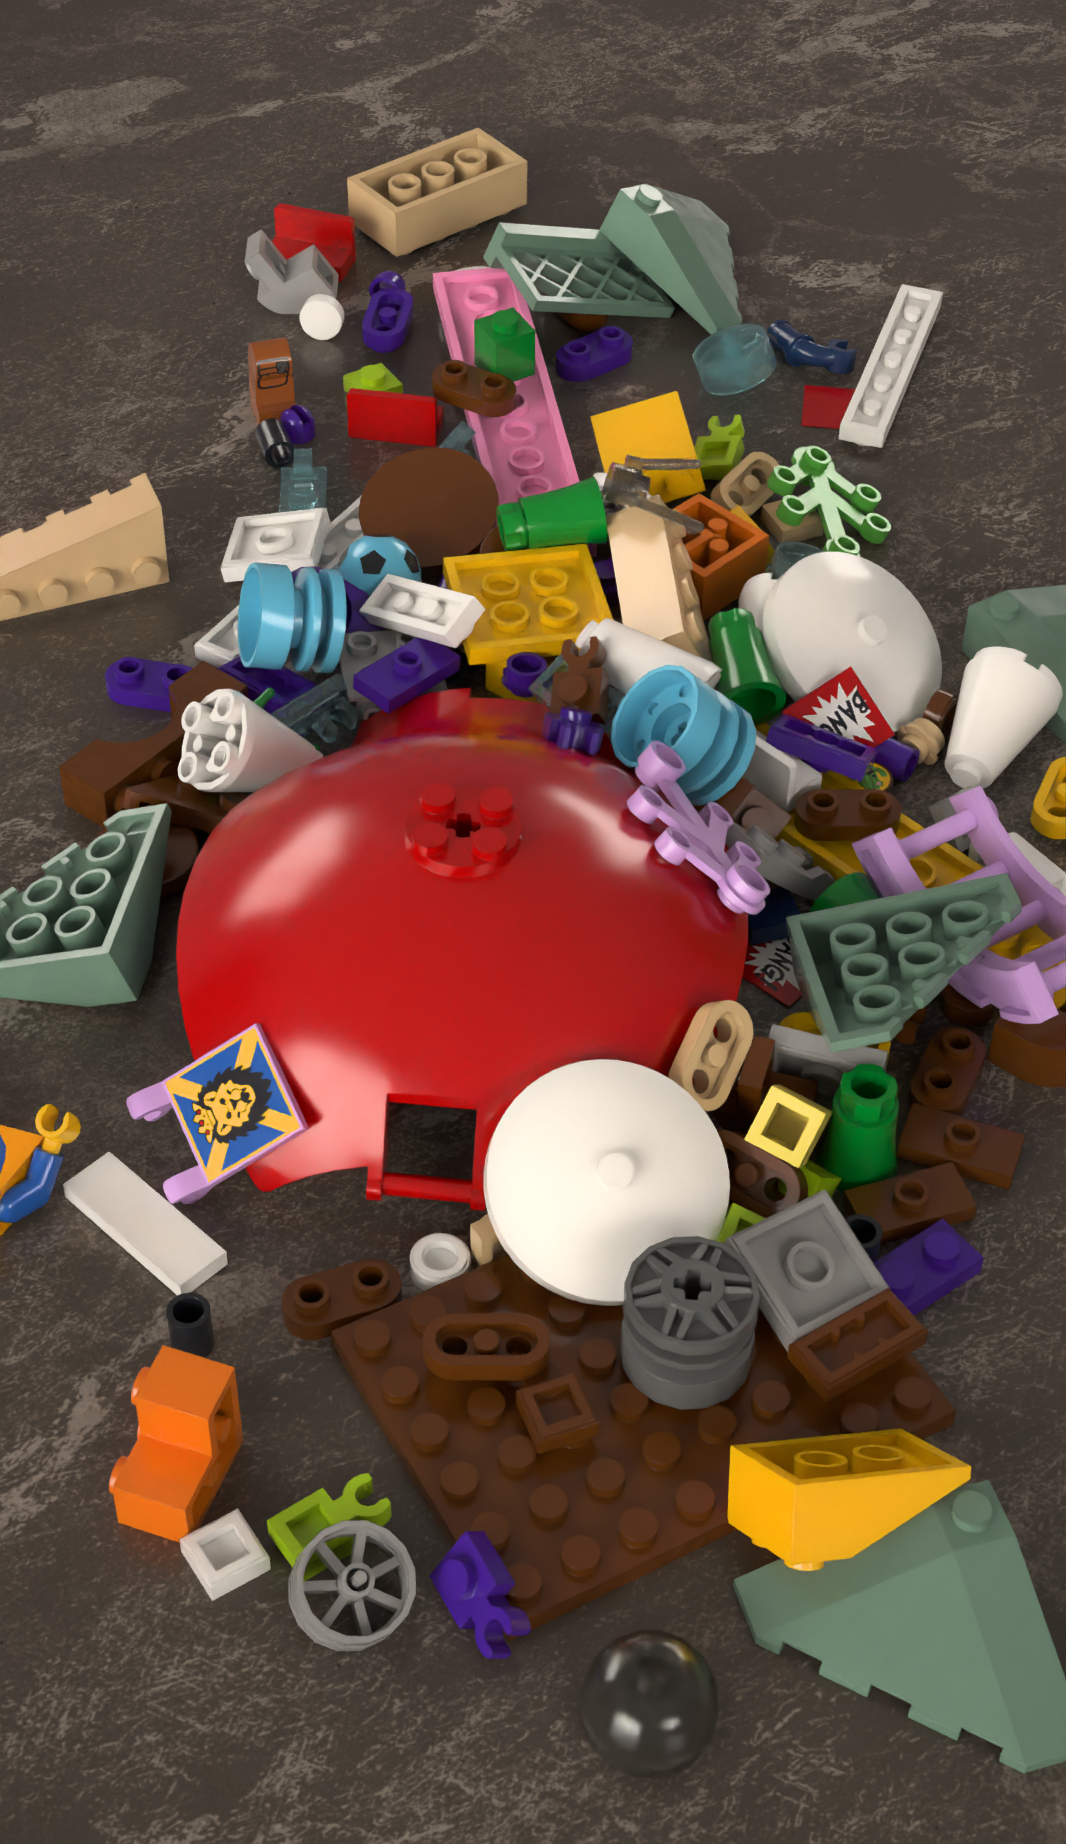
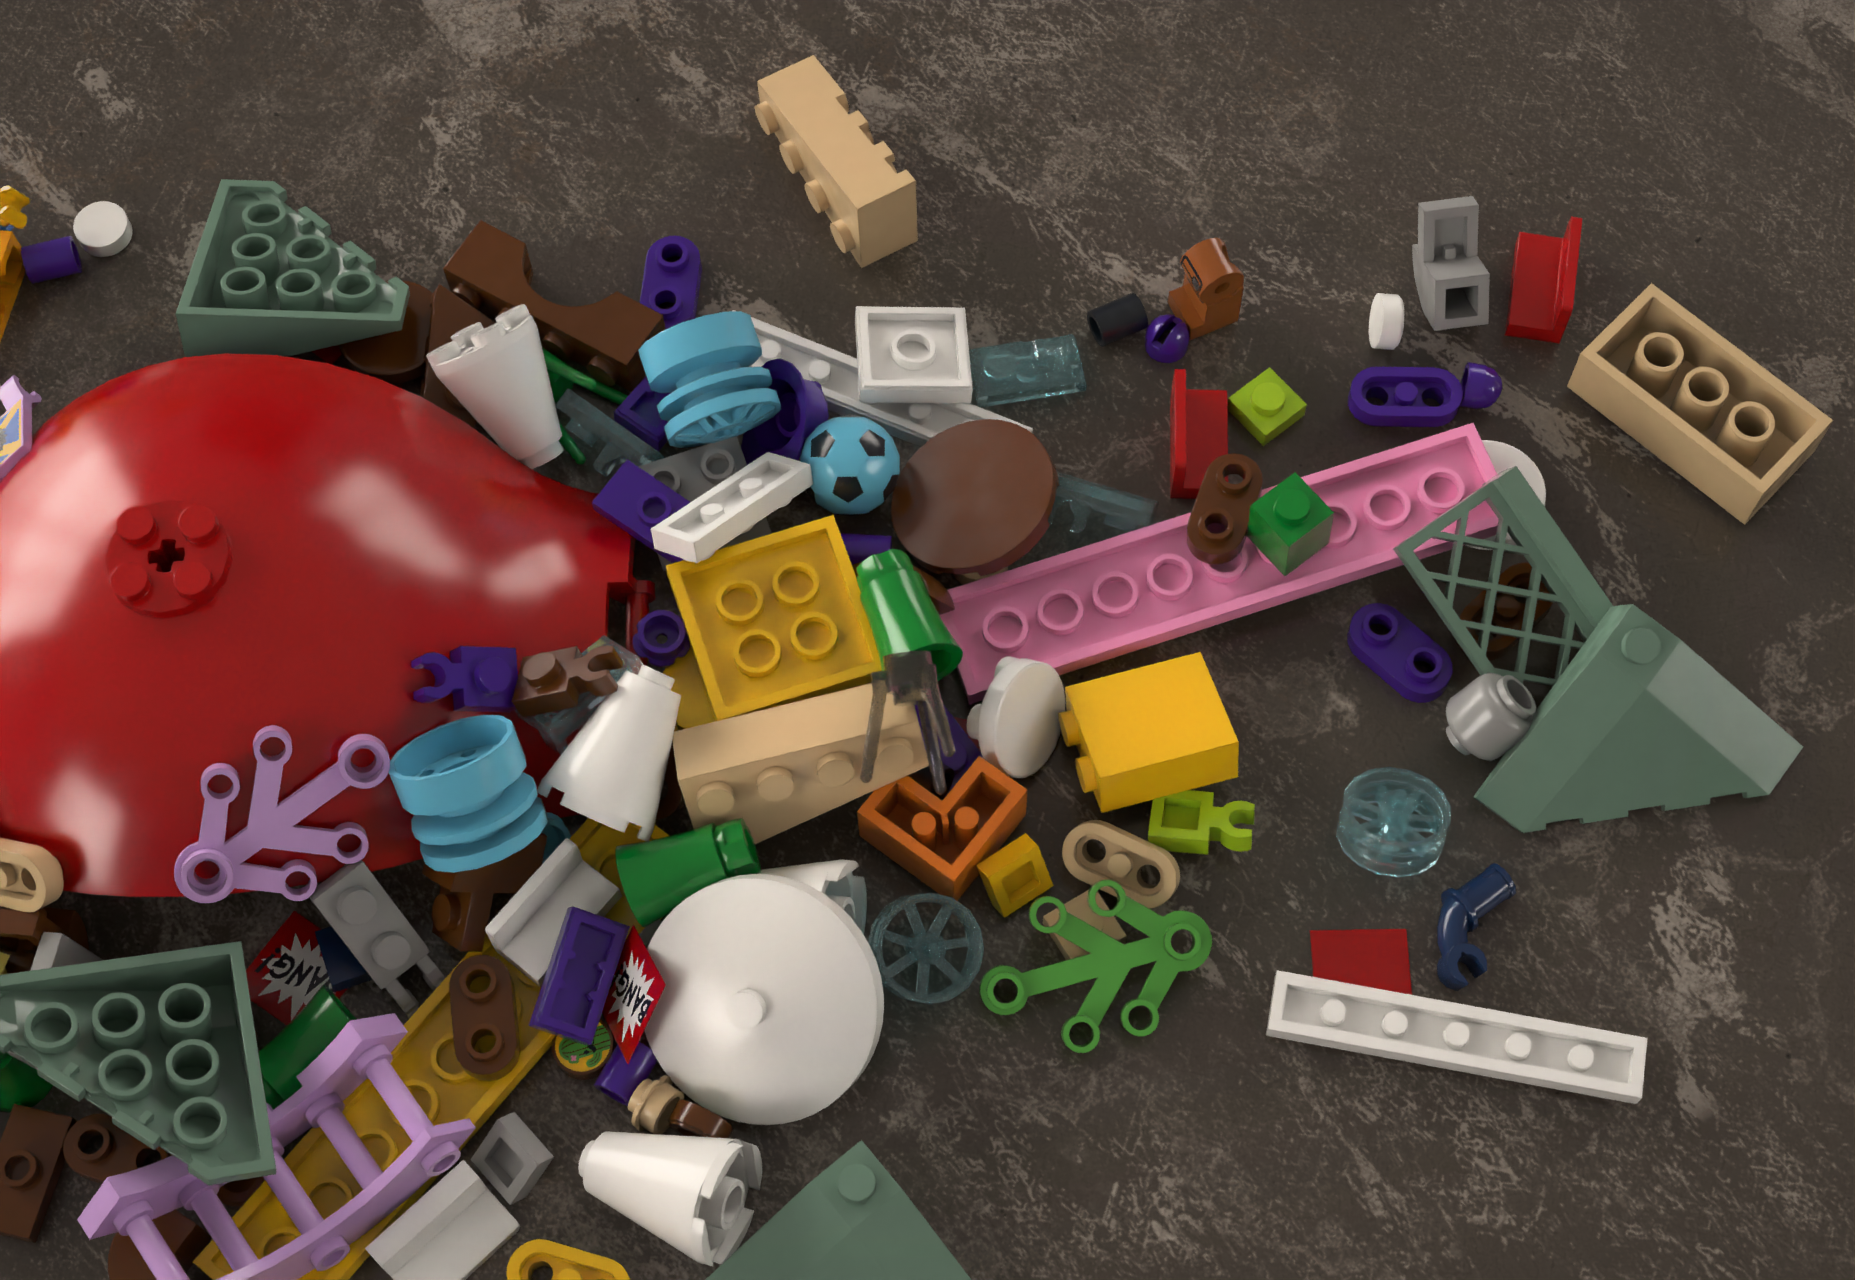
camera: 85 degrees right, 20 degrees up
(661, 308) = (1489, 716): none -> light grey head

